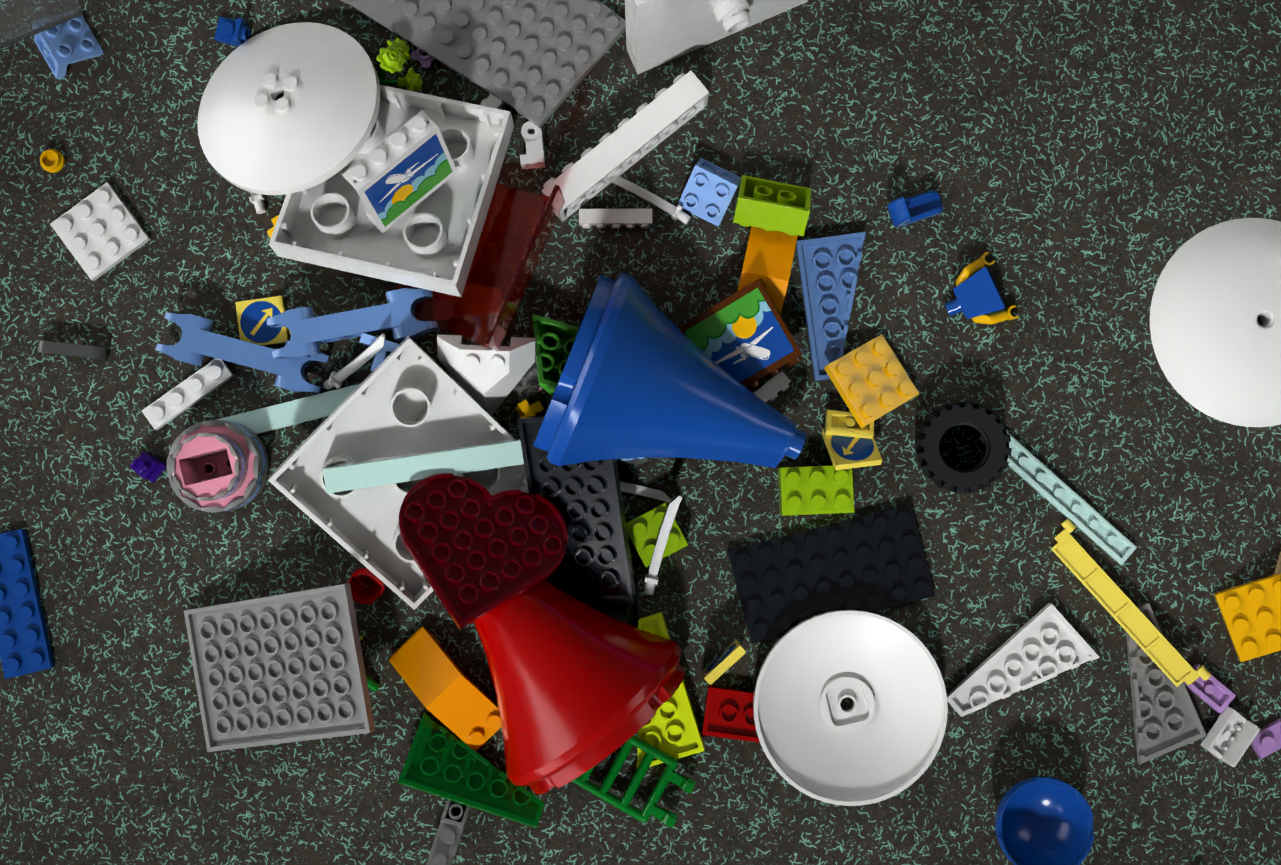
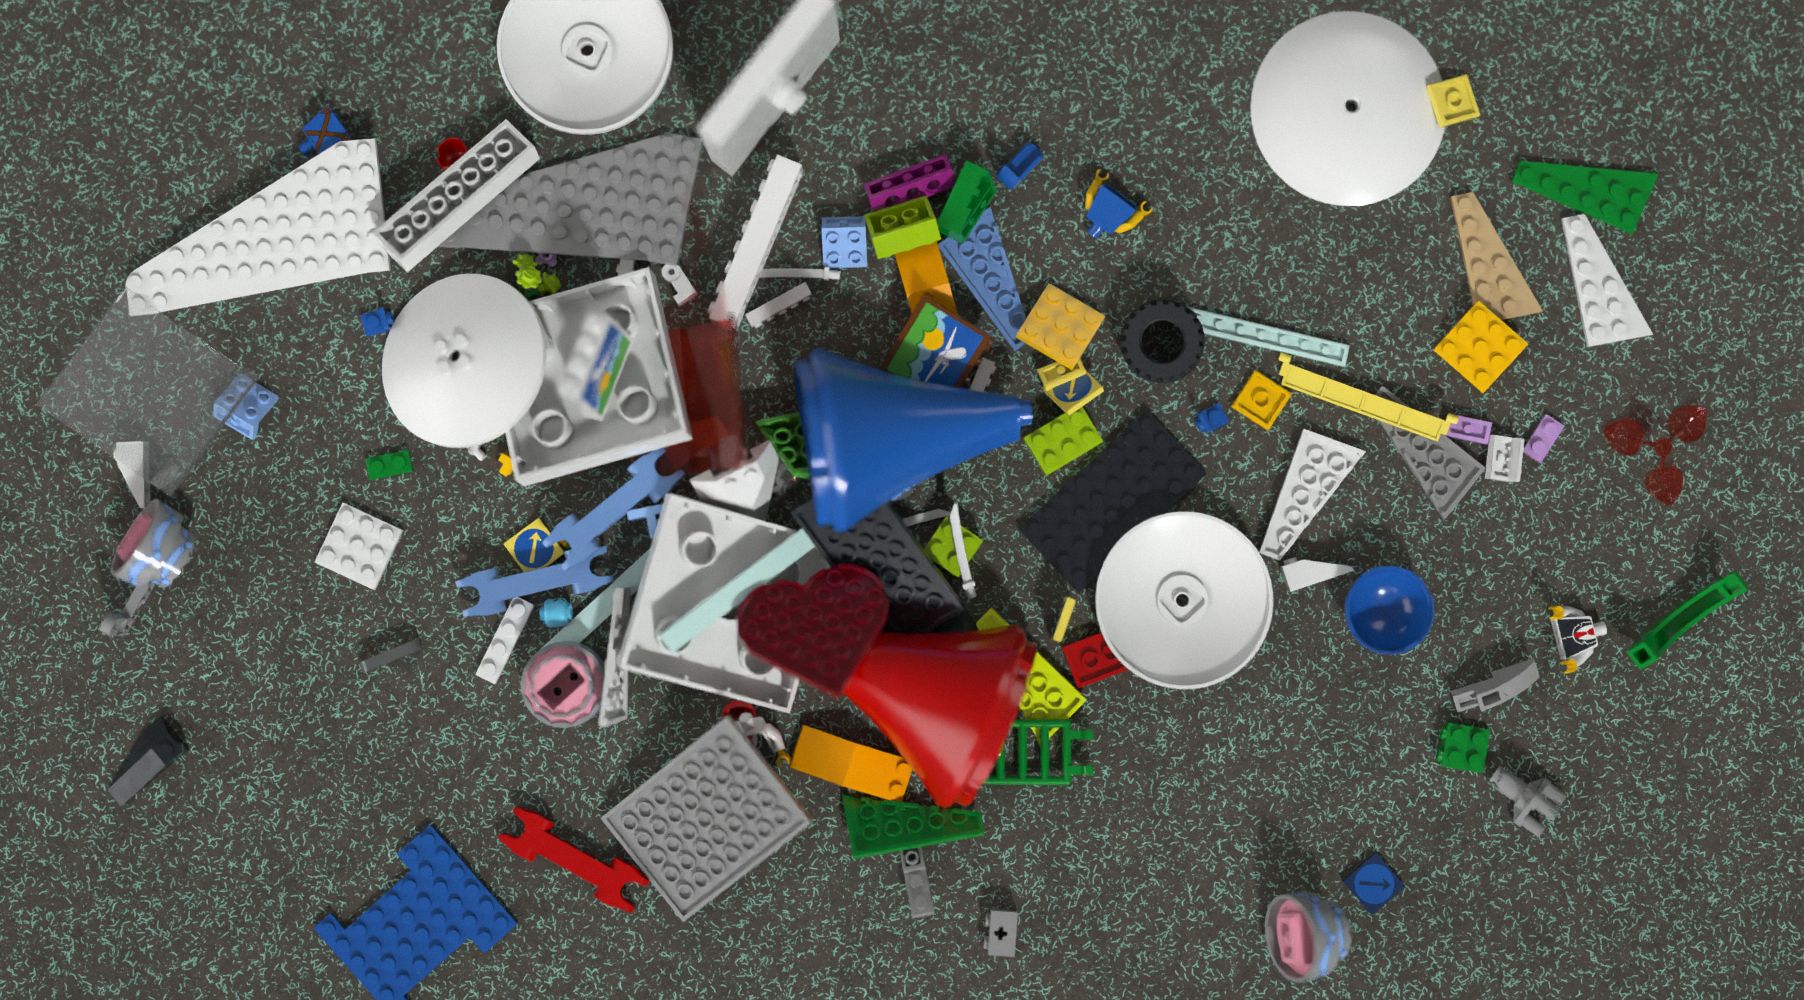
camera: 30 degrees left, 0 degrees up
(52, 160) = (286, 509): yellow plate -> none
(148, 466) = (507, 716): dark purple piece -> none
(157, 667) = (607, 878): none -> red piece
(170, 171) = (389, 465): none -> green plate
(248, 393) = (556, 612): none -> medium azure head
(260, 496) = (615, 688): none -> white wing
(337, 378) = (622, 561): white sword -> none
(374, 618) = (763, 736): none -> white torso
(525, 409) = (791, 502): yellow tile -> none
(803, 169) = (911, 183): none -> magenta brick
(847, 214) = (966, 202): none -> green wedge
(967, 546) = (1211, 418): none -> blue bracket
(979, 743) = (1307, 572): none -> white slope
(1024, 553) = (1261, 400): none -> yellow tile

